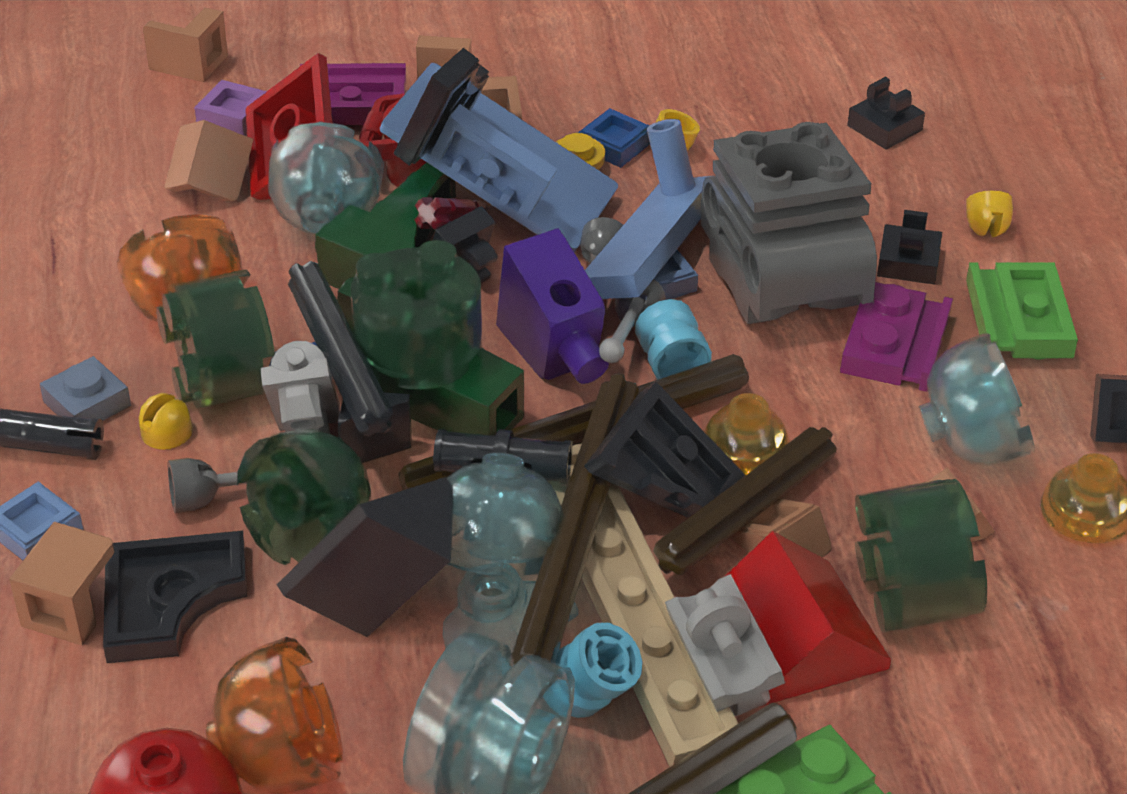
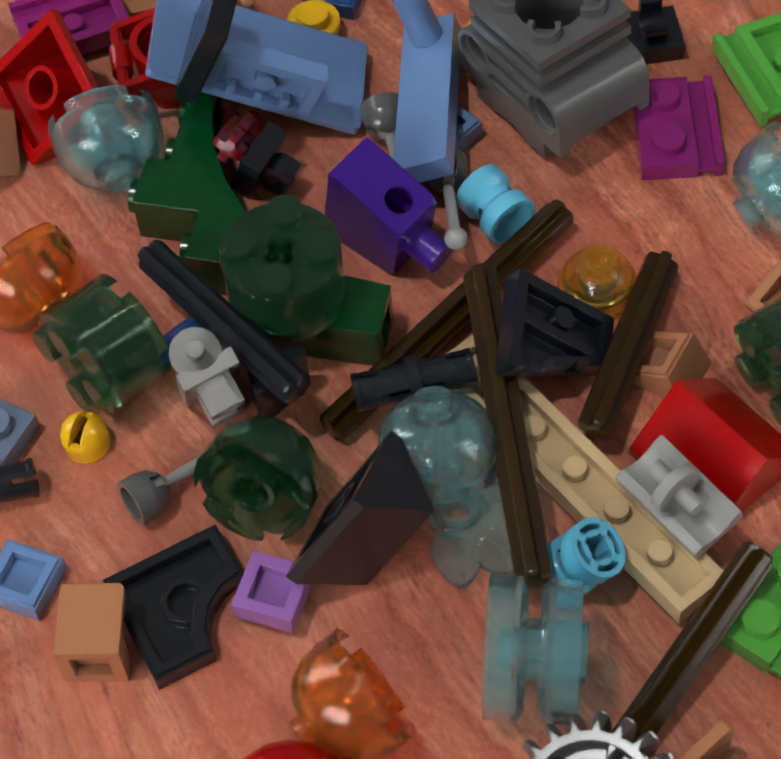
camera: 15 degrees left, 15 degrees up
(257, 606) = (268, 595): none -> medium lavender plate

